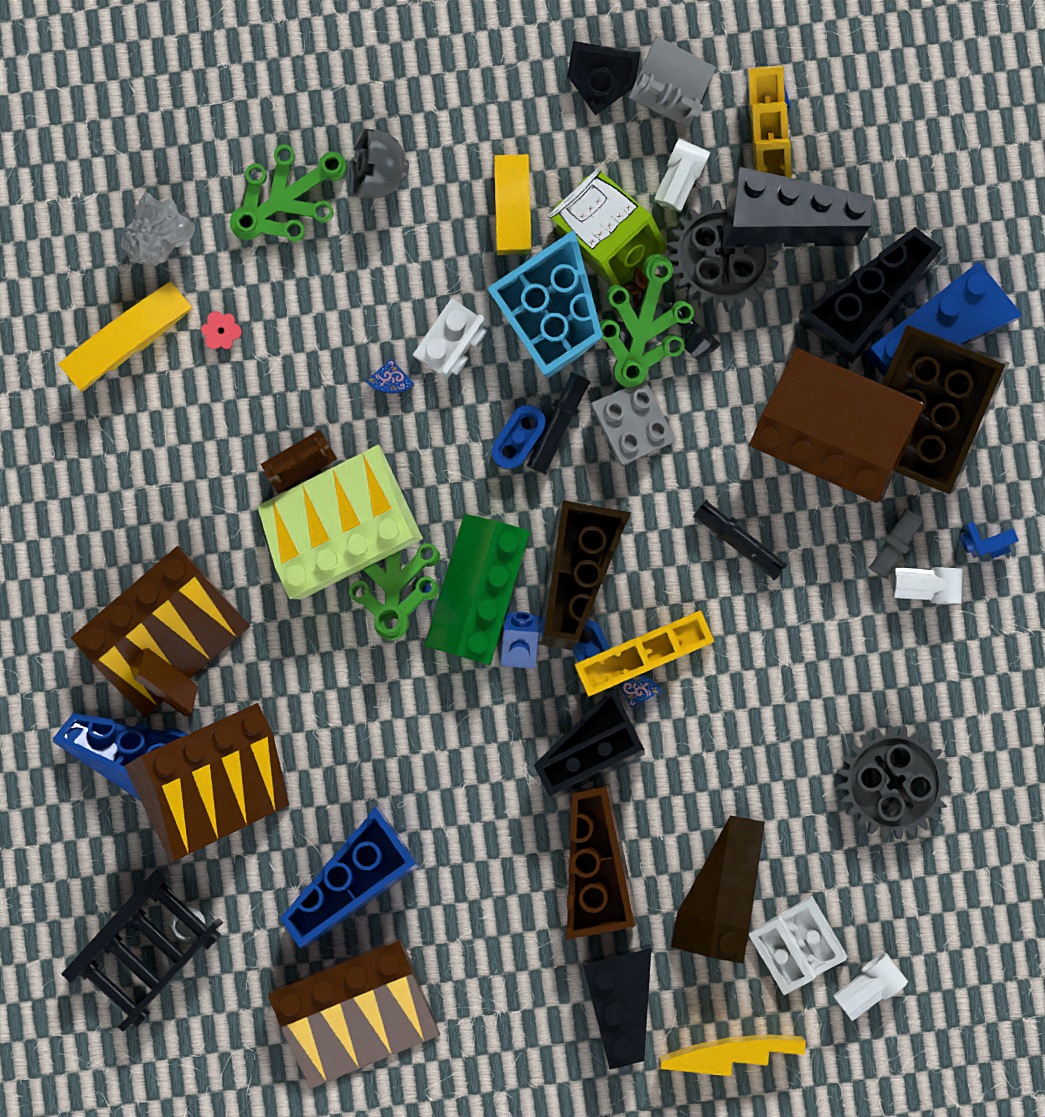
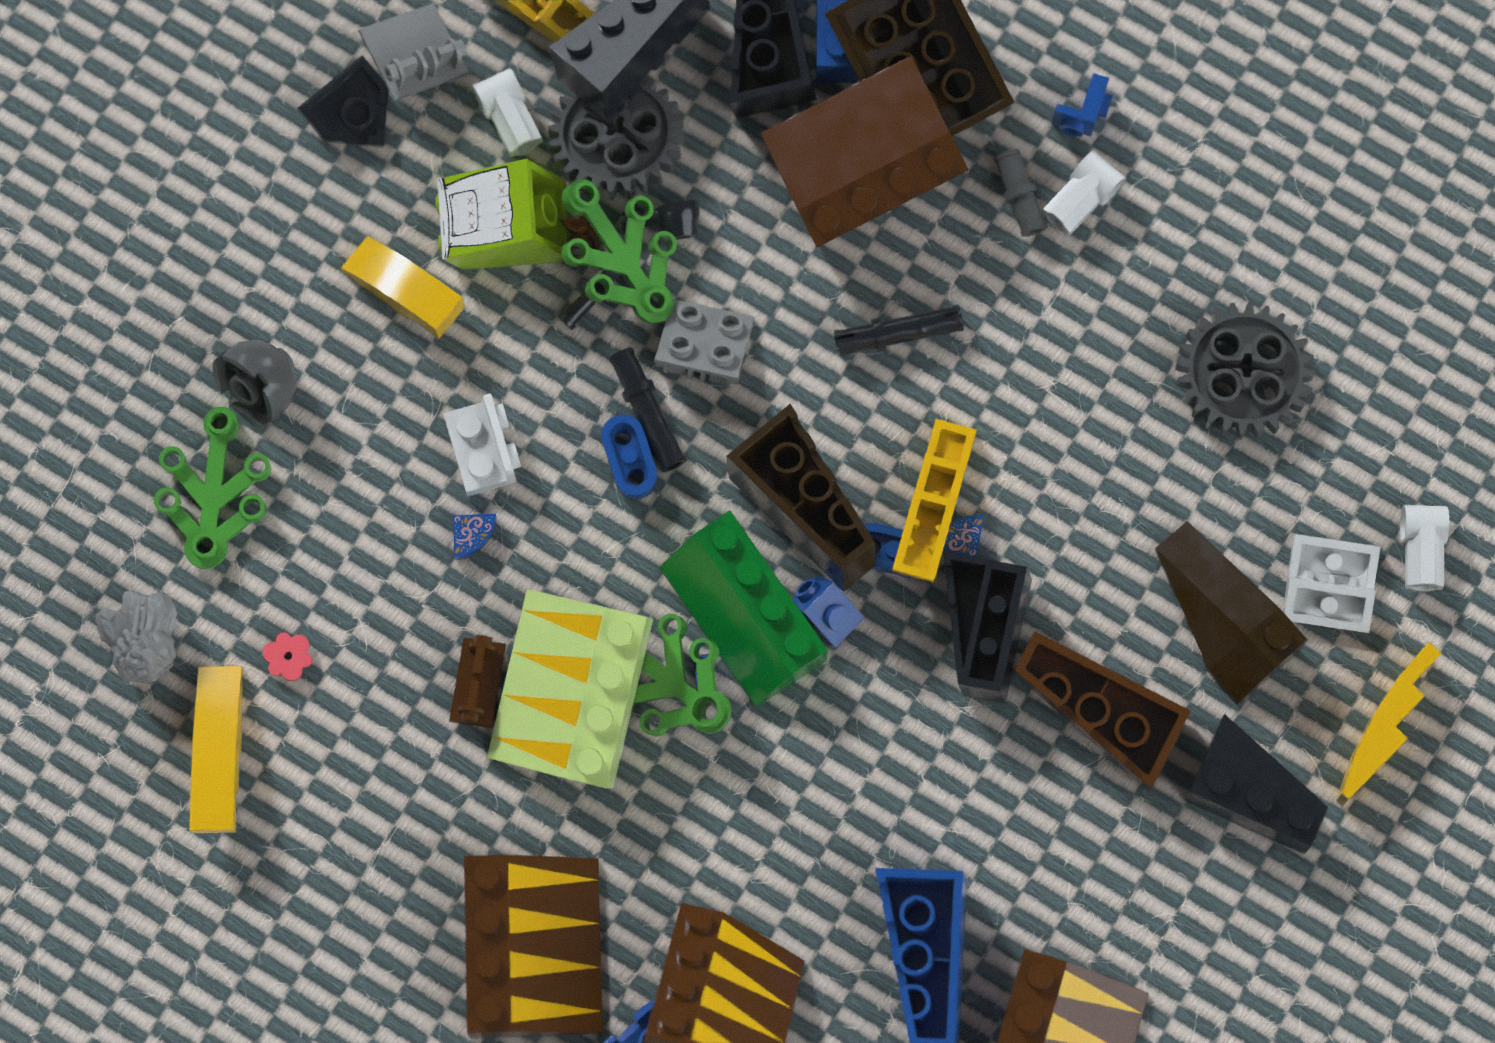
camera: 50 degrees left, 10 degrees down
(164, 681) = (584, 978): reddish brown slope -> none
(551, 305) = (531, 322): medium azure wedge -> none

